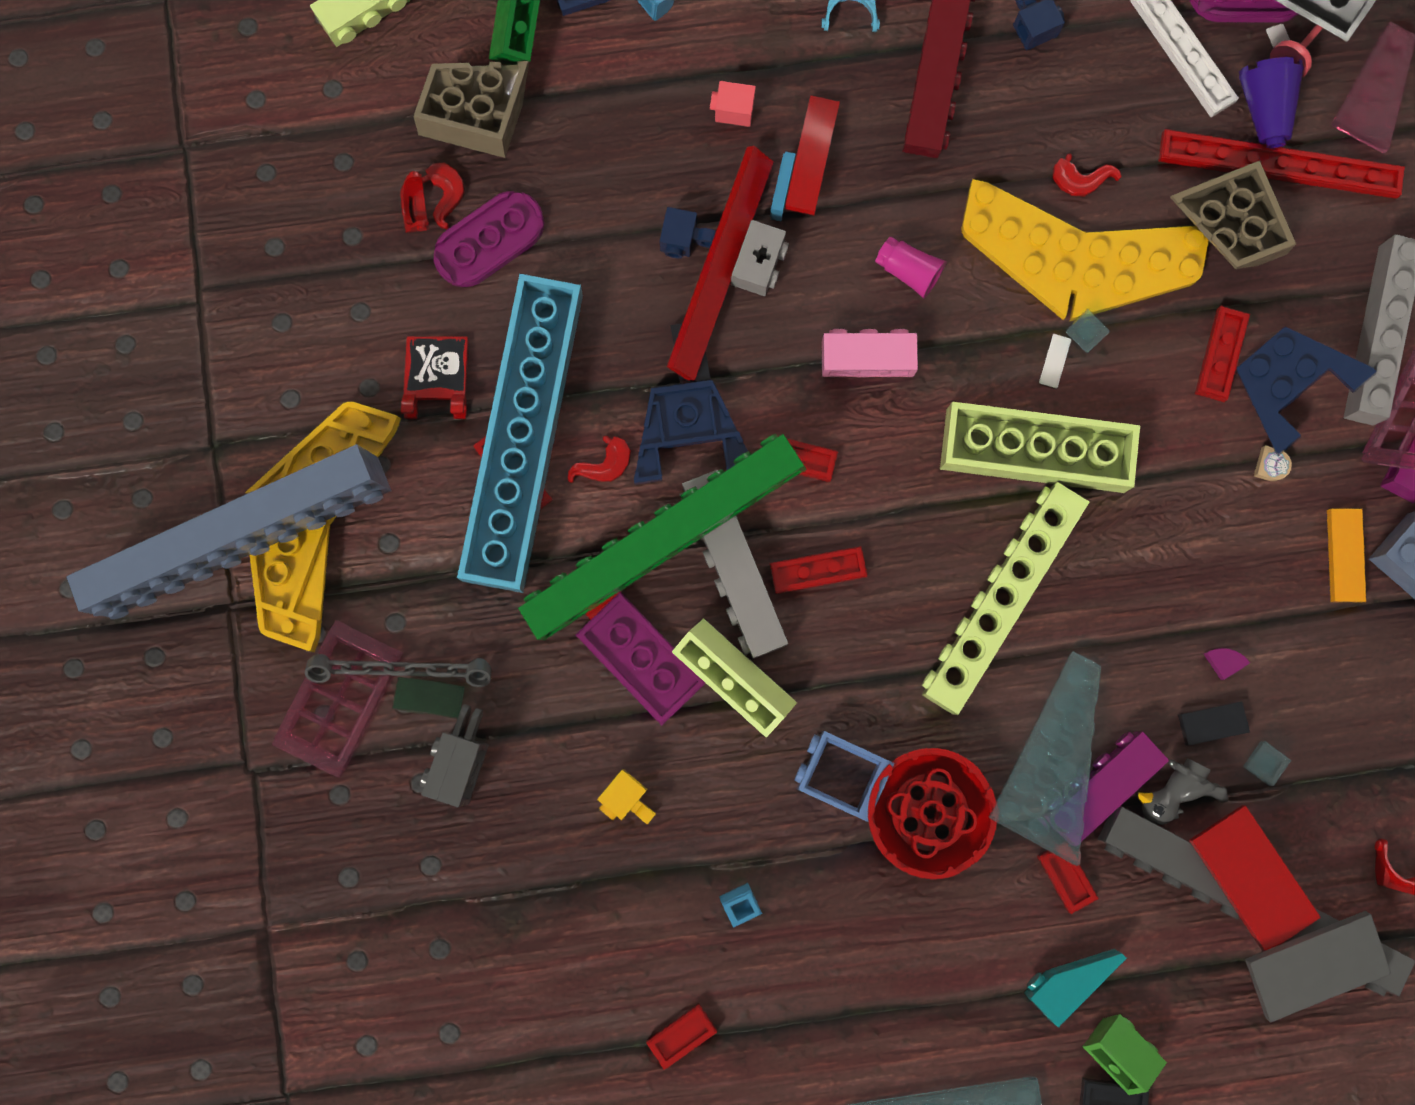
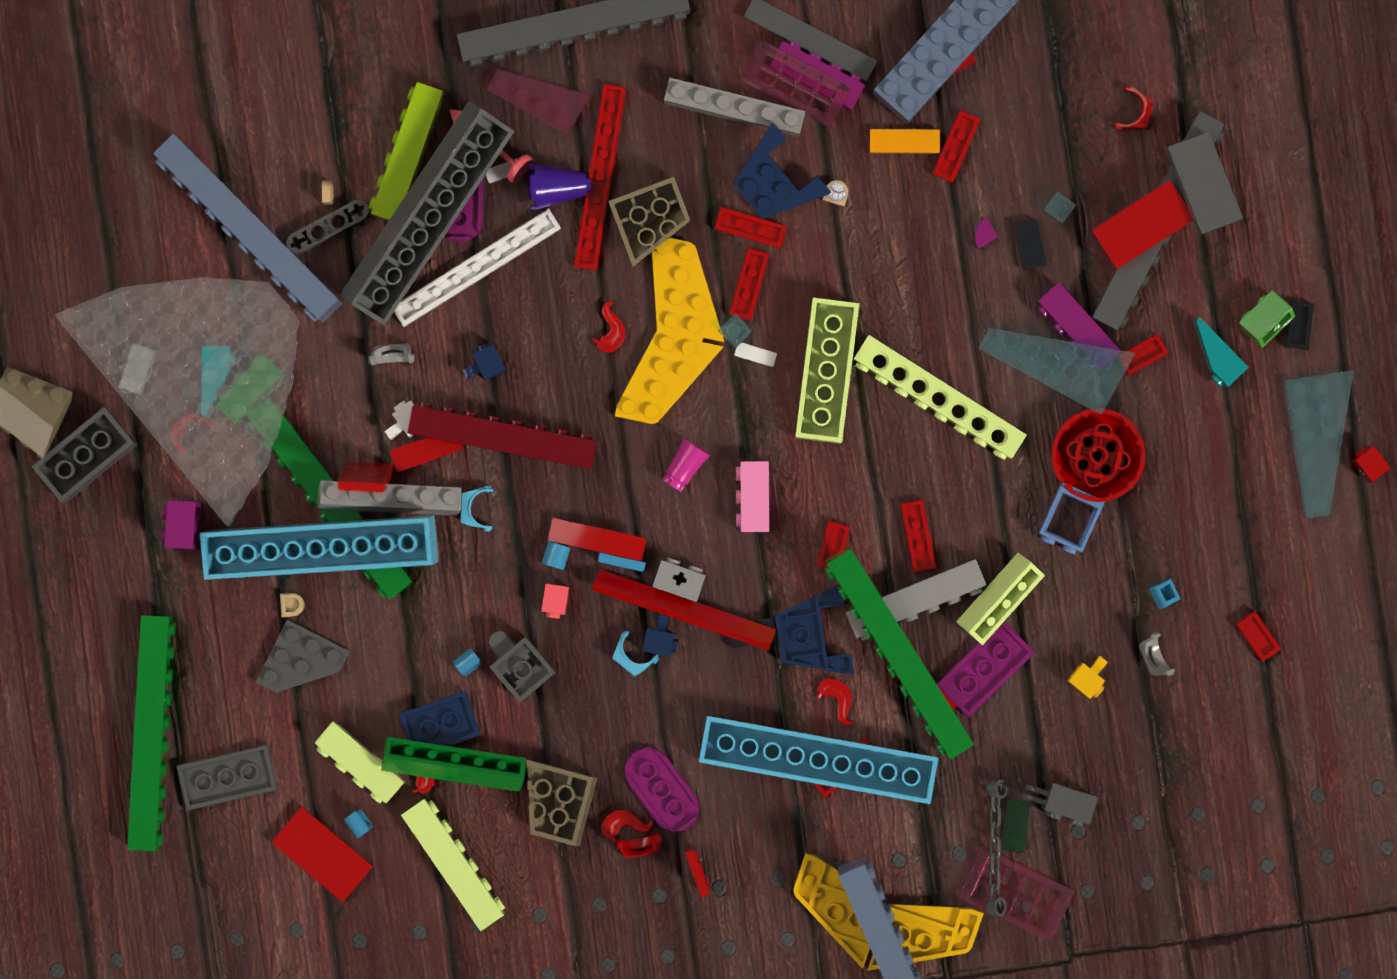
camera: 90 degrees left, 5 degrees up
(375, 270) = (697, 871): none -> red tile
(435, 372) = (767, 827): flag -> none
(639, 901) = (1151, 645): none -> light grey helmet
(644, 199) = (620, 657): none -> medium azure helmet
(648, 56) = (519, 665): none -> dark grey brick
(790, 107) = (556, 555): none -> dark azure brick
(1148, 352) = (749, 284): none -> red tile
(1184, 785) = (1076, 269): dark grey animal -> none
(1342, 624) = (956, 146): none -> red tile

